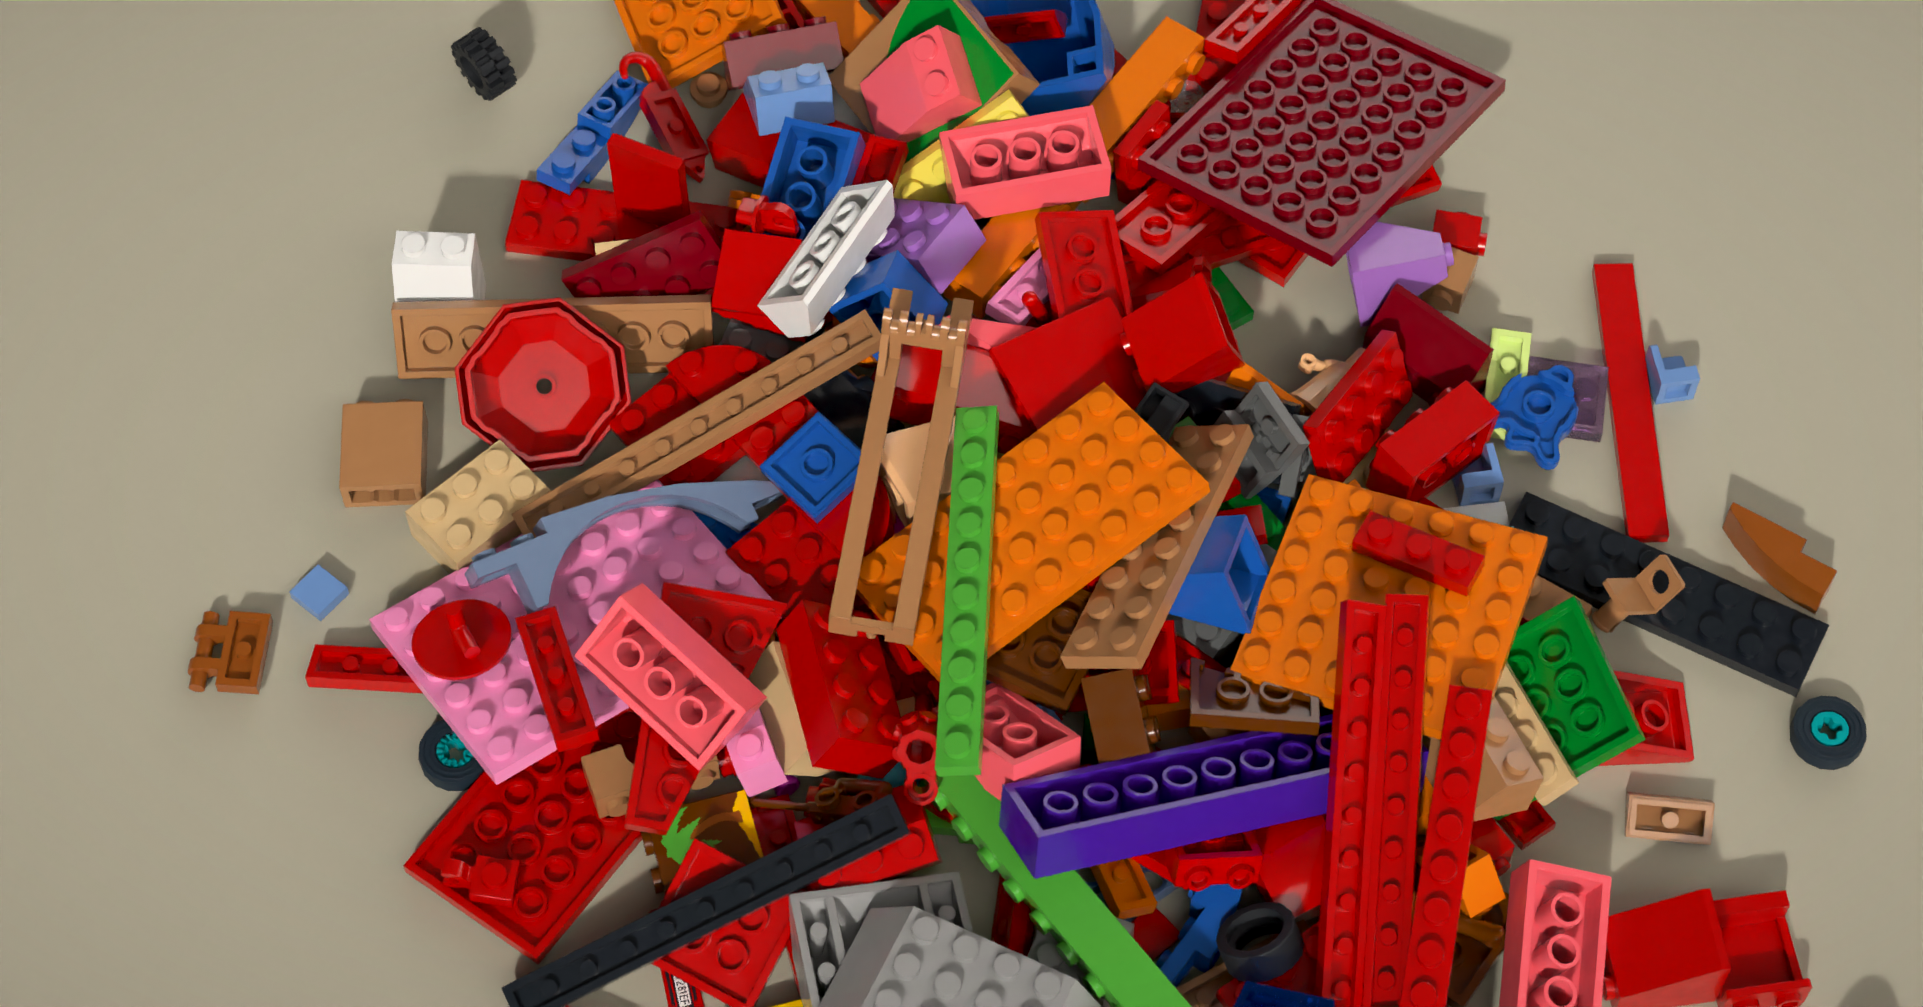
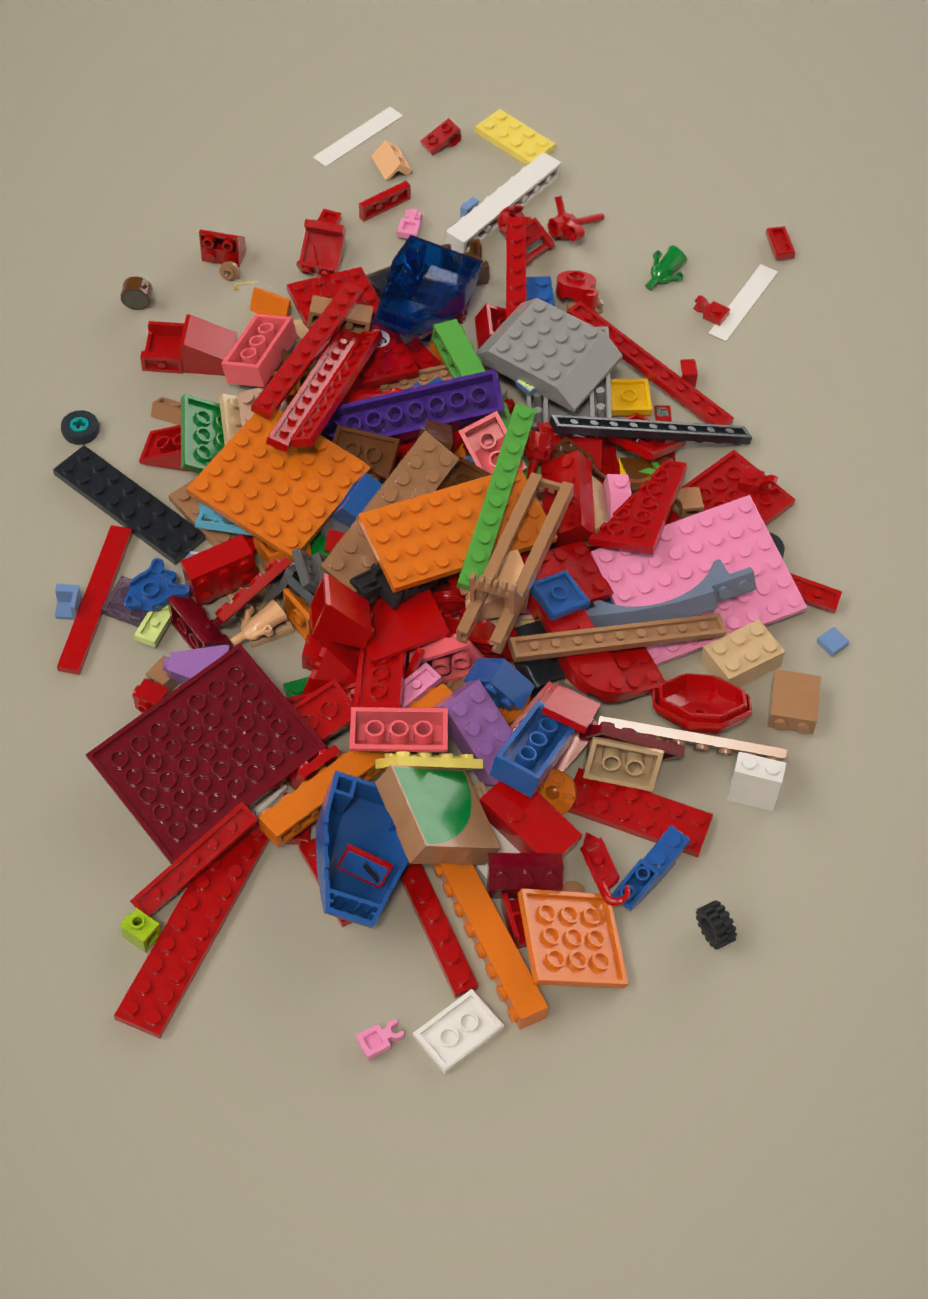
camera: 170 degrees left, 5 degrees down
(242, 654) = (874, 616): dark orange plate -> none
(461, 639) = (766, 563): red shield -> none
(557, 679) = (713, 524): red plate -> none
(647, 181) = (624, 787): red tile -> none
(670, 675) = (654, 503): coral slope -> none
(767, 216) = (566, 729): red piece -> none
(792, 93) = (529, 828): medium blue slope -> none
(829, 258) = (529, 687): white slope -> none
(881, 161) = (484, 755): red plate -> none
(920, 86) = (448, 789): coral slope -> none
(1269, 960) = (400, 360): black tyre -> none
(1418, 553) = (257, 489): red plate -> none
(1637, 595) = (149, 487): medium nougat bracket -> none
(1779, 557) = (59, 500): dark orange slope -> none

